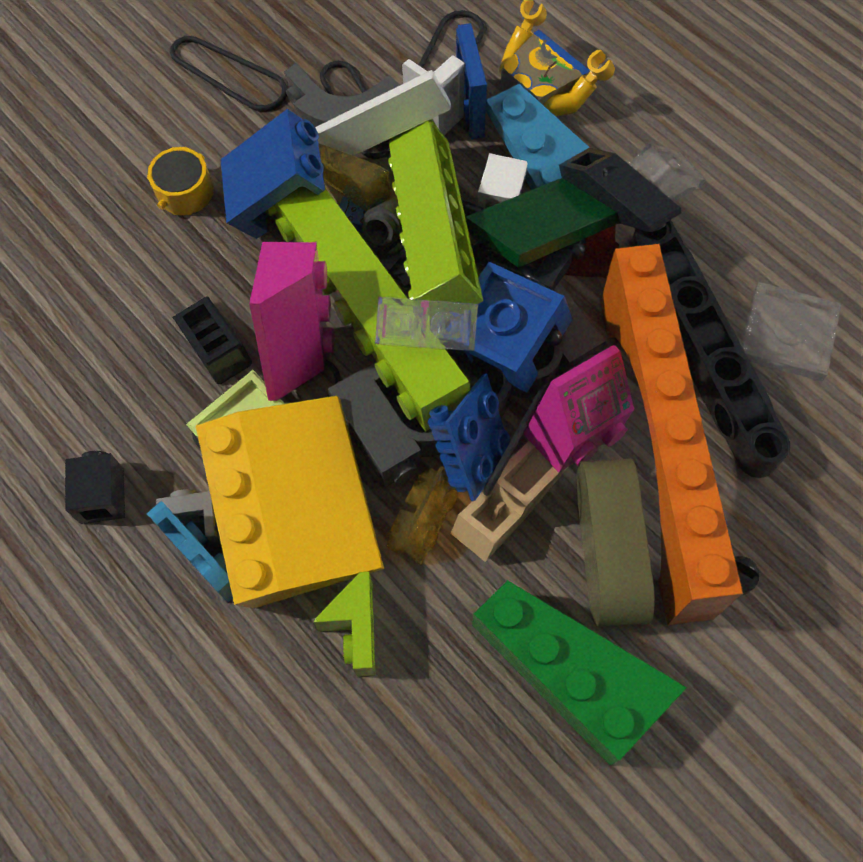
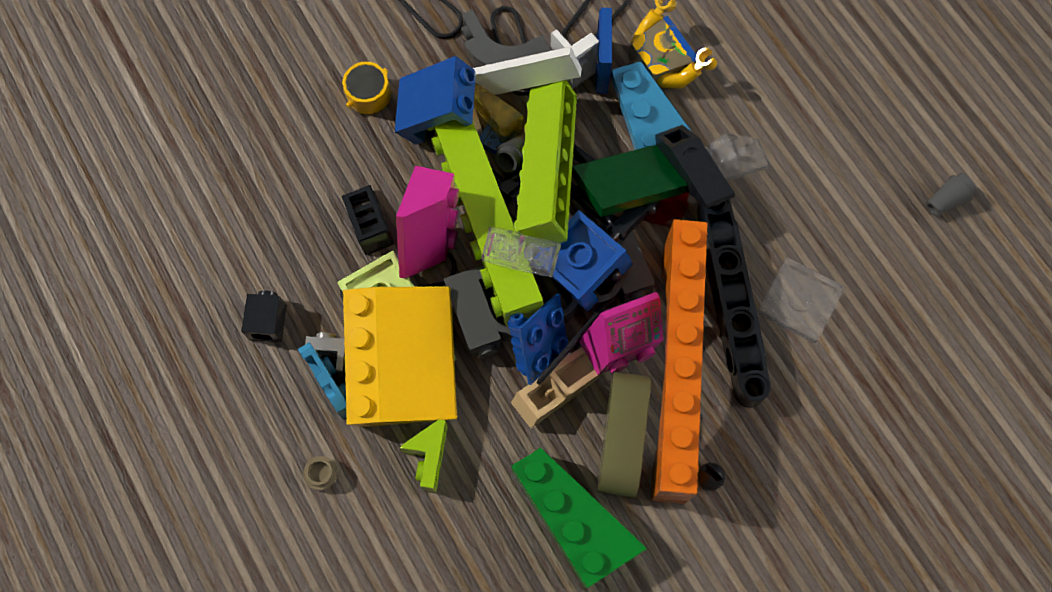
camera: 10 degrees right, 5 degrees up
(209, 682) = (320, 473): none -> dark tan plate
(419, 530) = (486, 396): clear yellow hinge -> none
(501, 180) = (608, 138): white panel -> none

